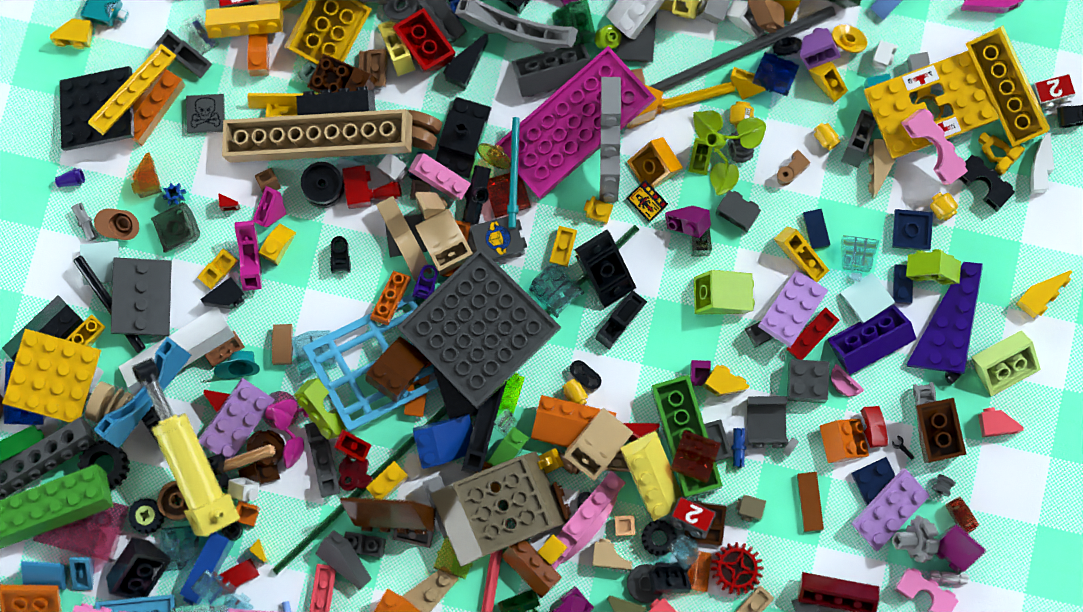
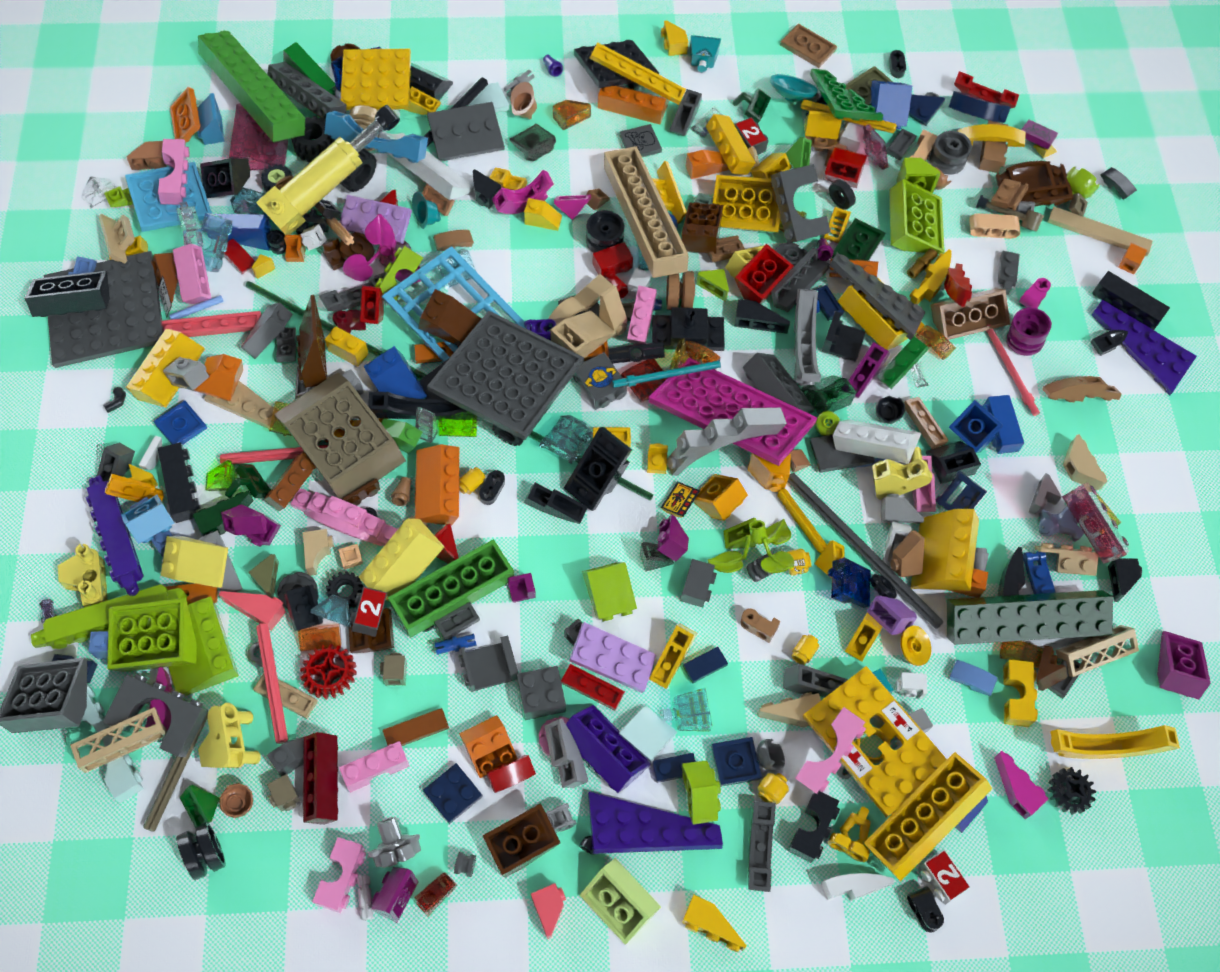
camera: 70 degrees right, 15 degrees down
(82, 572) = (219, 147): medium azure slope -> none
(173, 189) = (562, 134): blue gear -> none
(227, 203) = (566, 171): red slope -> none
(337, 102) = (680, 215): black brick -> none
(340, 259) = (547, 263): black piece -> none
(388, 305) = (517, 307): orange tile -> none
(413, 91) = (714, 282): none -> lime slope
(500, 126) = (699, 352): none -> clear orange slope
(550, 461) = (398, 473): yellow tile -> none
(552, 549) = (308, 492): yellow slope -> none
(598, 444) = (419, 500): tan slope -> none
(695, 456) = (430, 594): clear red slope -> none
(723, 383) = (516, 611): yellow slope -> none
(790, 447) = (468, 693): light grey tile -> none
(839, 542) = (361, 771): none -> bright pink arch
(872, 374) = (565, 755): none -> light grey slope
(890, 509) = (424, 812): lavender plate -> none
(902, 447) = (498, 809): black hand -> none
(916, 198) = (770, 755): none -> dark grey hair
(991, 233) = (761, 846): none -> dark grey slope

